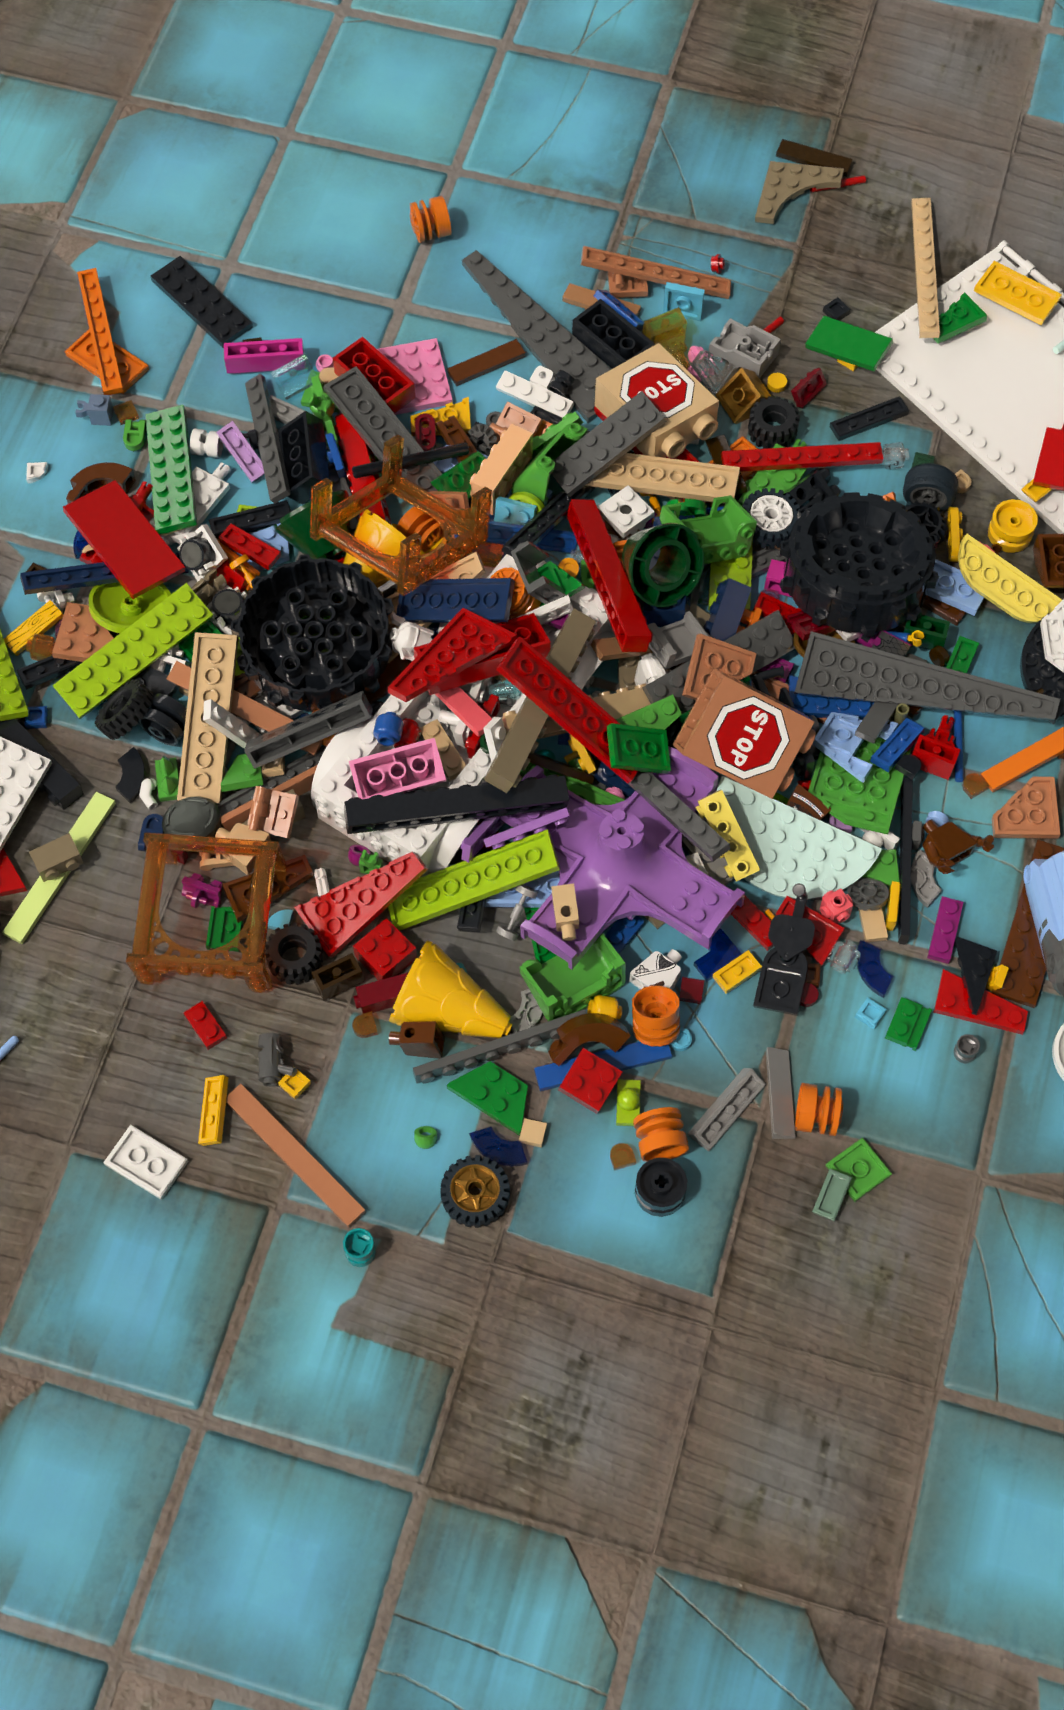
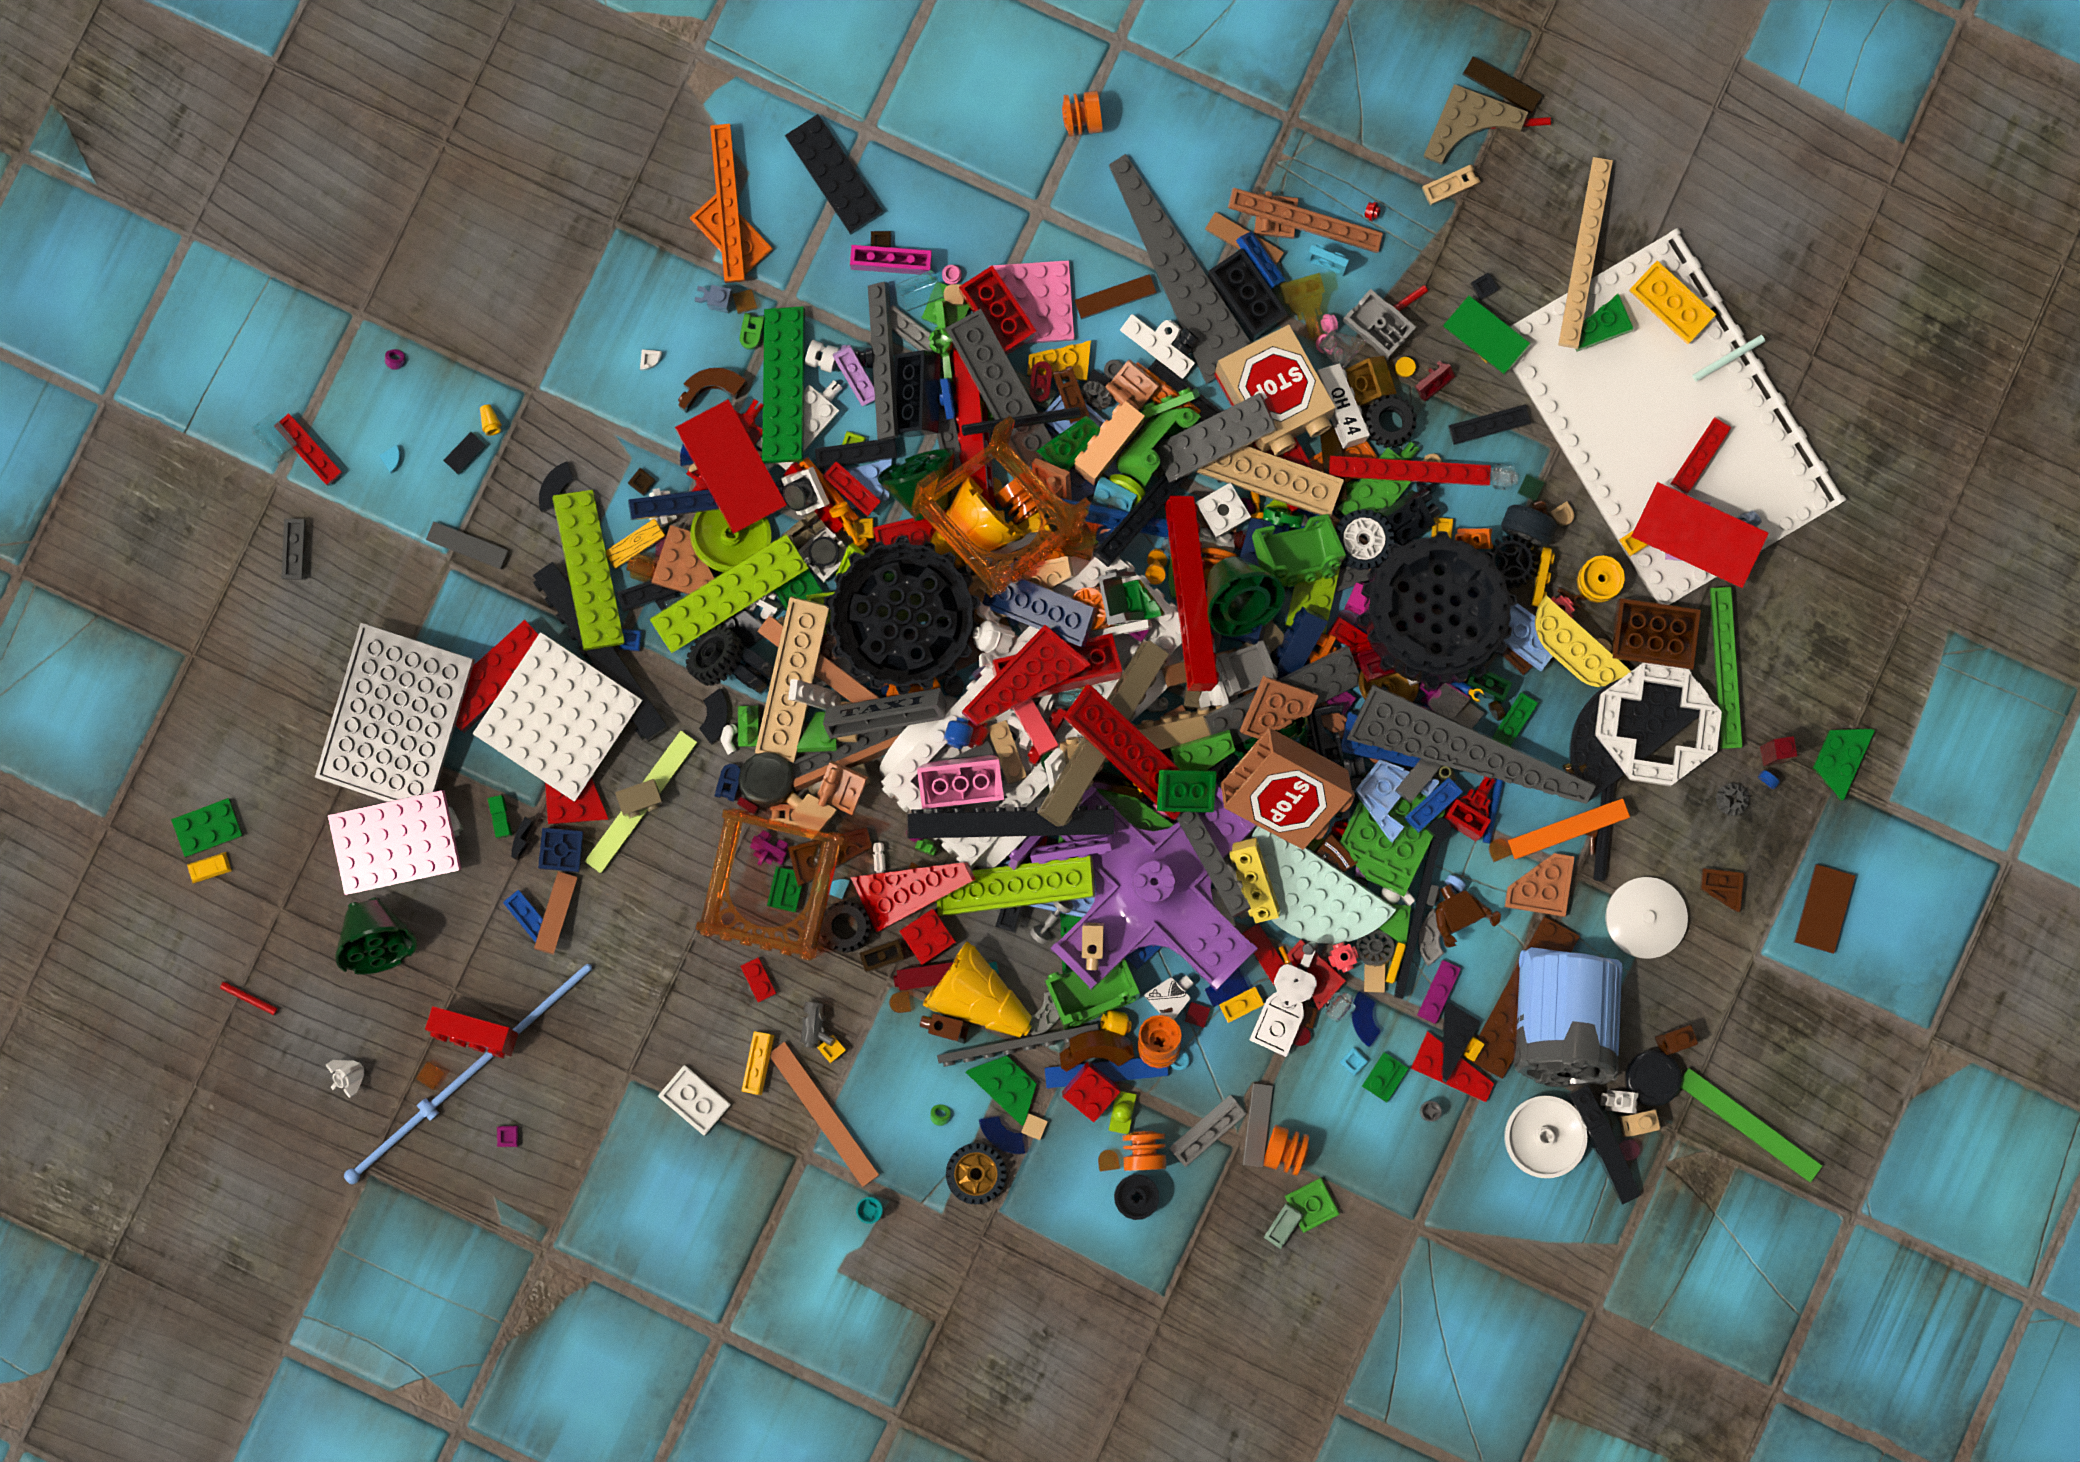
camera: 10 degrees right, 20 degrees up
(732, 424) = (1347, 414): none -> white brick
(785, 235) = (1450, 185): none -> tan plate

